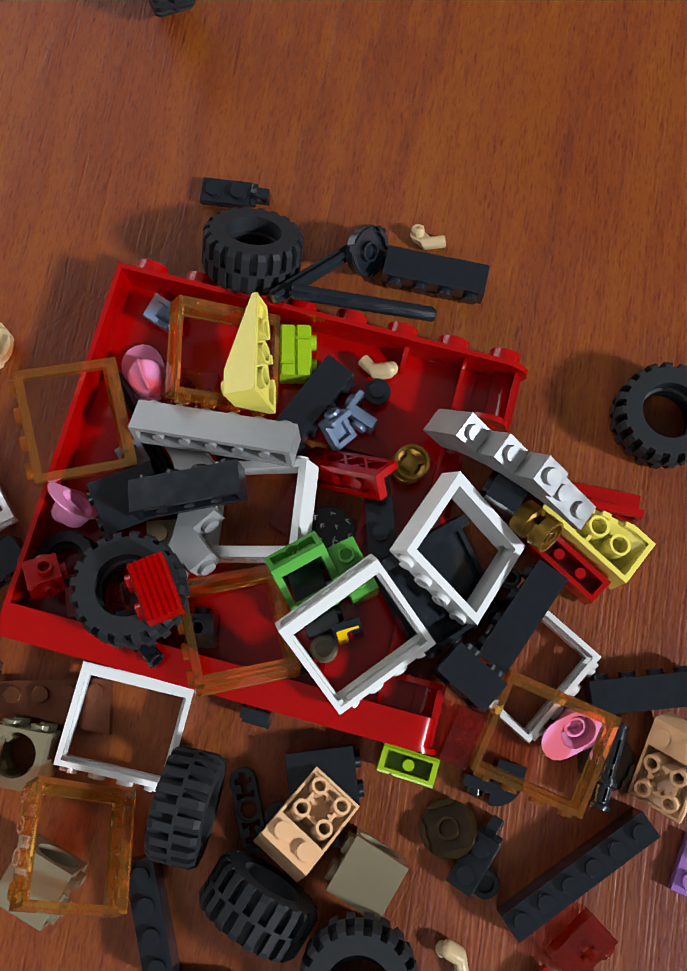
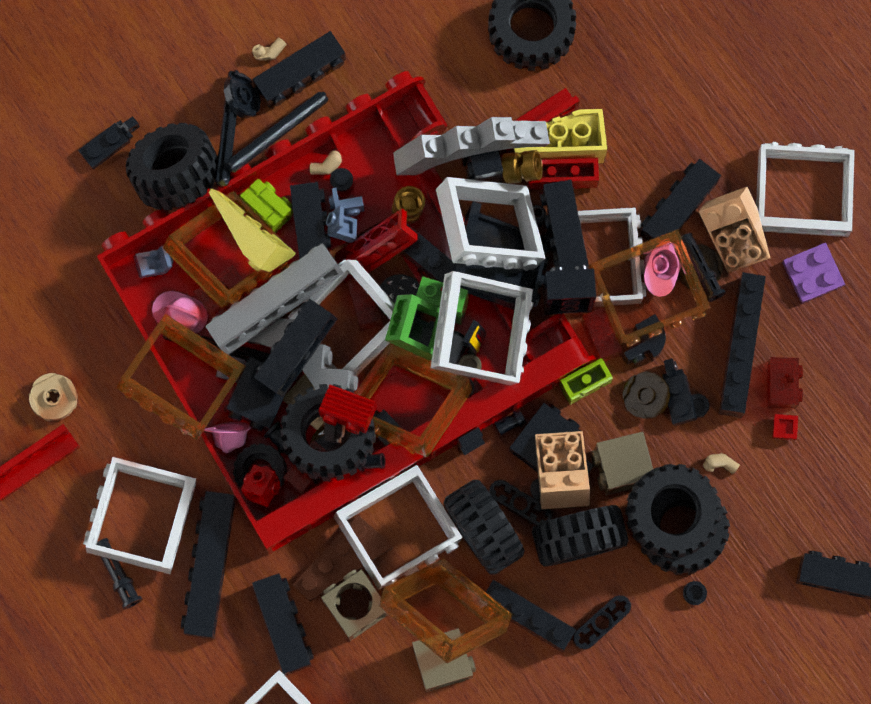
camera: 50 degrees left, 0 degrees up
(311, 731) = (510, 422): none -> black pin

